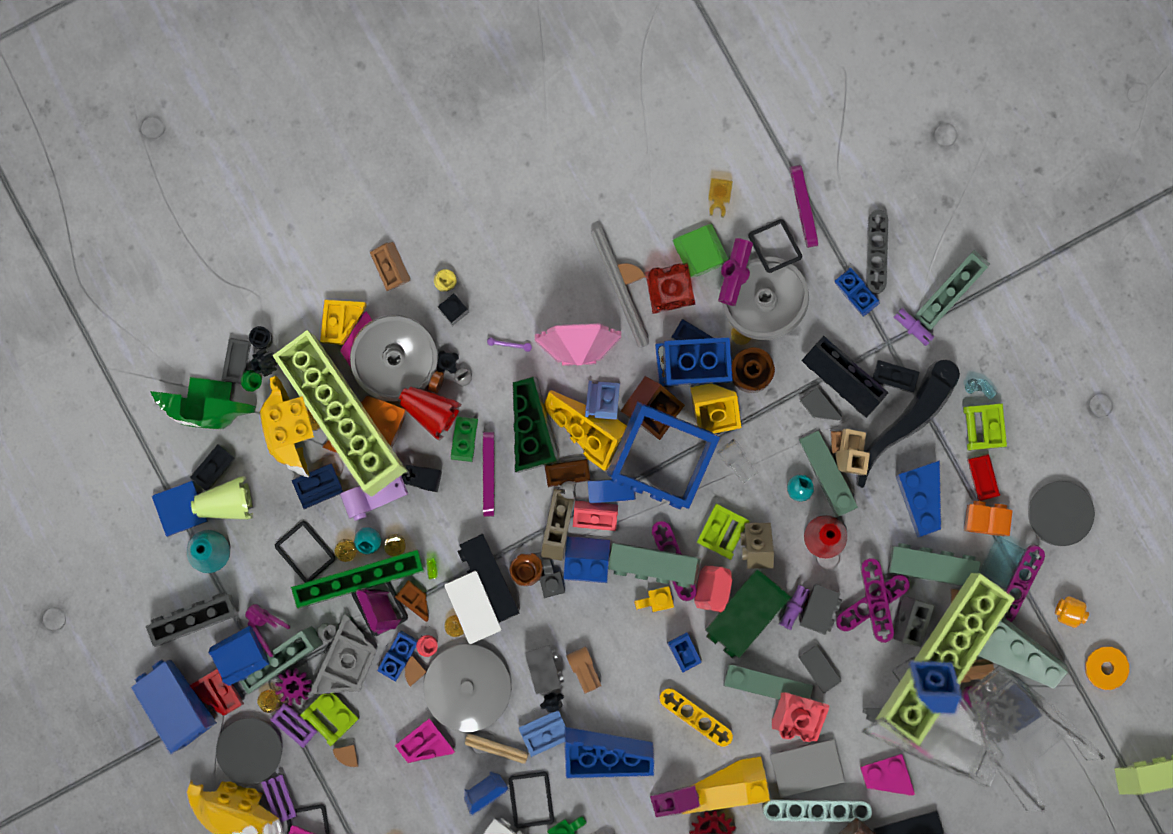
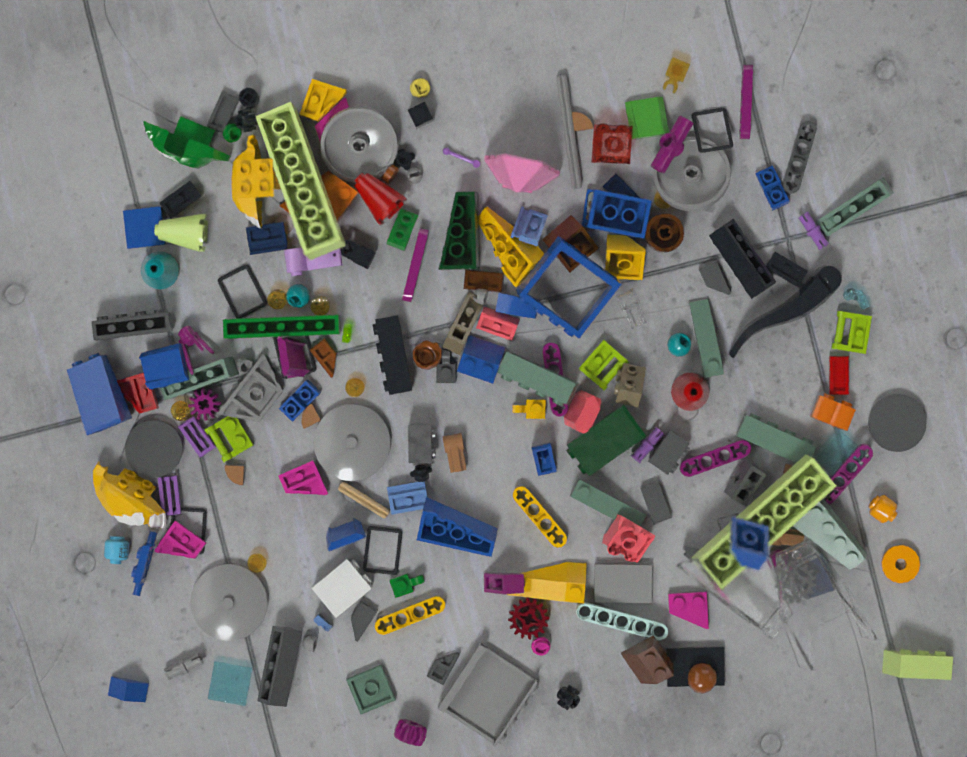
camera: 15 degrees right, 5 degrees up
(390, 266) = (375, 63): medium nougat slope -> none
(426, 645) = (326, 398): coral plate -> none
(472, 607) = (373, 375): white sticker -> none
(836, 437) = (724, 312): medium nougat tile -> none
(851, 455) = (730, 329): tan brick -> none
(881, 600) = (723, 457): magenta beam -> none
(922, 497) = (781, 379): blue wedge -> none

